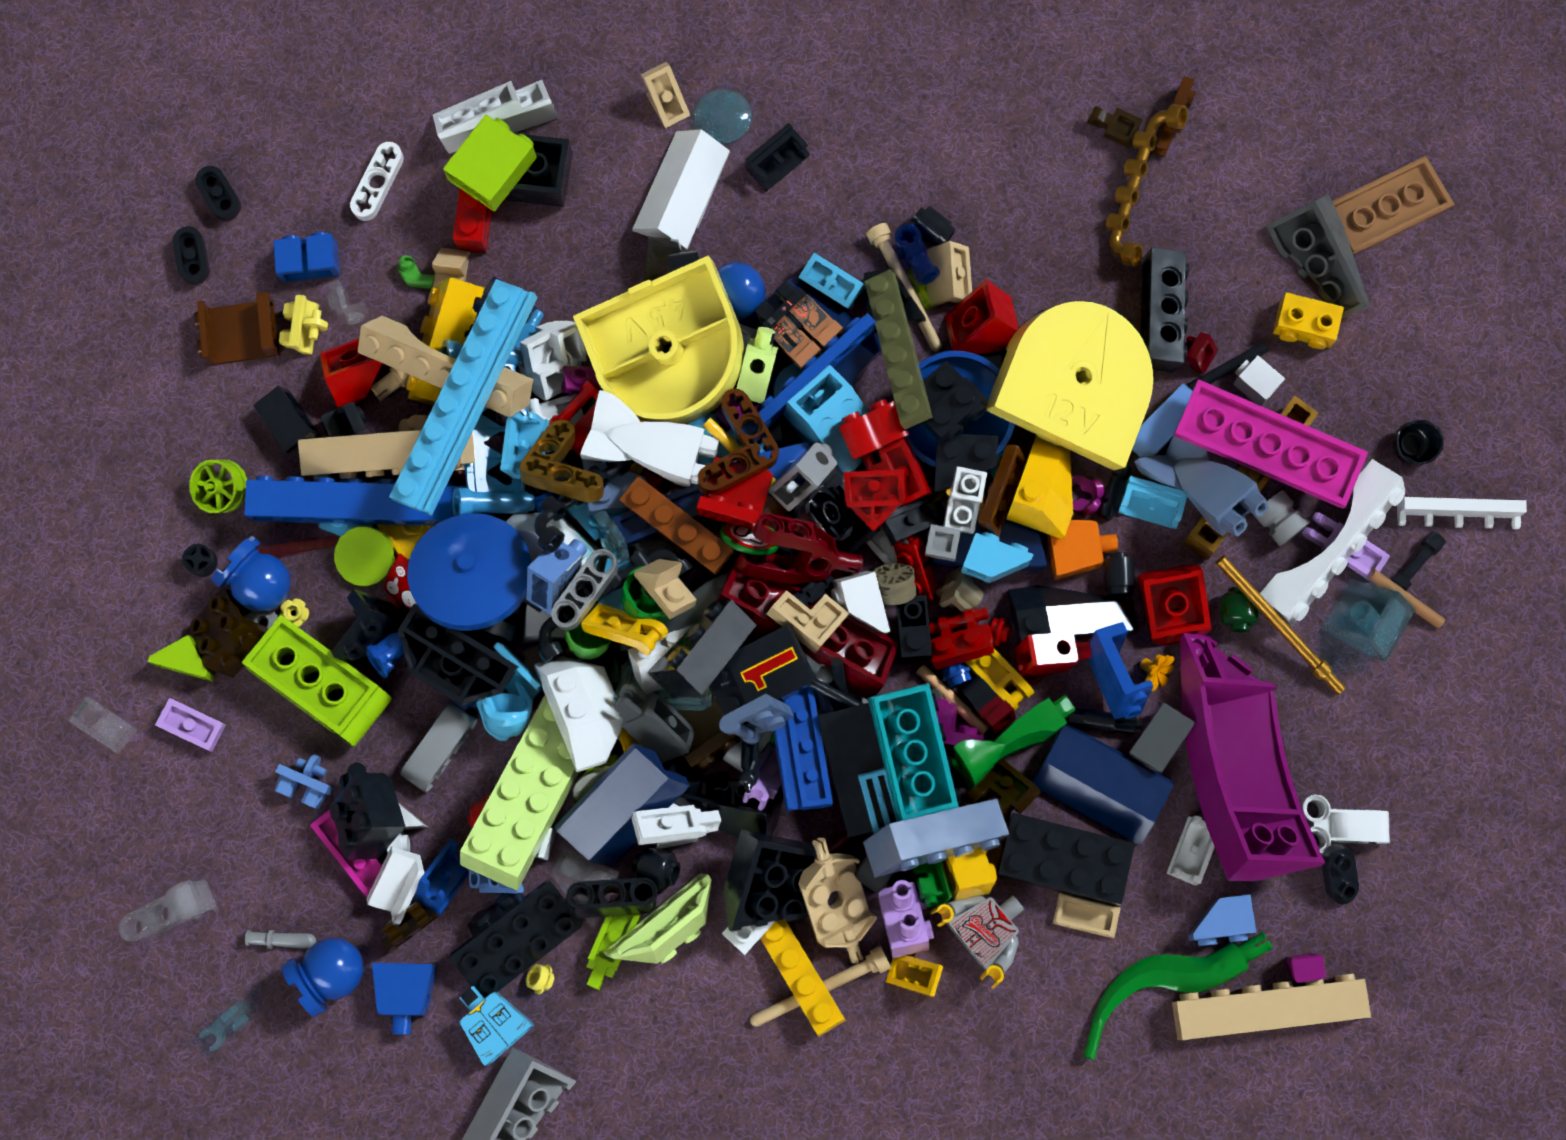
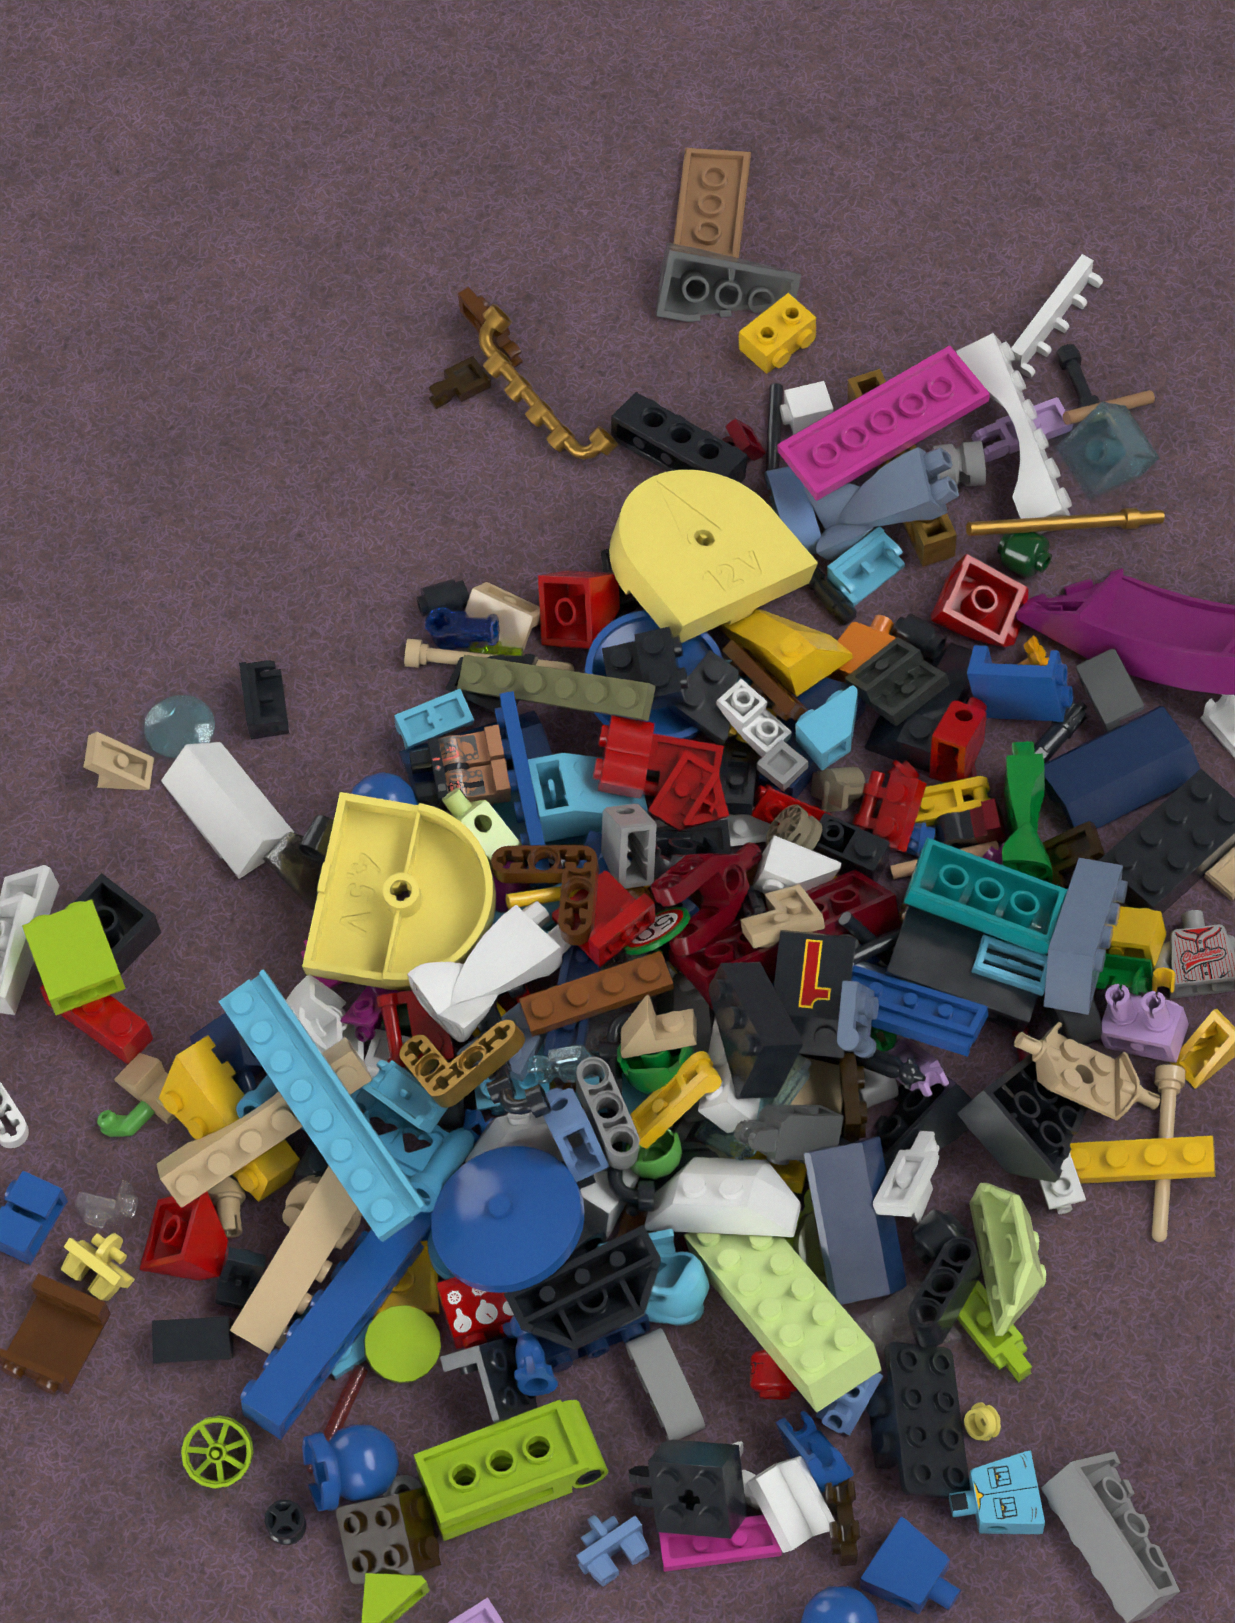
camera: 55 degrees left, 15 degrees down
(298, 605) = (405, 1449): light yellow plate -> none
(1064, 582) = (897, 681): none -> pearl dark grey slope
(1092, 487) = (819, 611): magenta piece -> none
(1421, 434) = (963, 301): black hair -> none

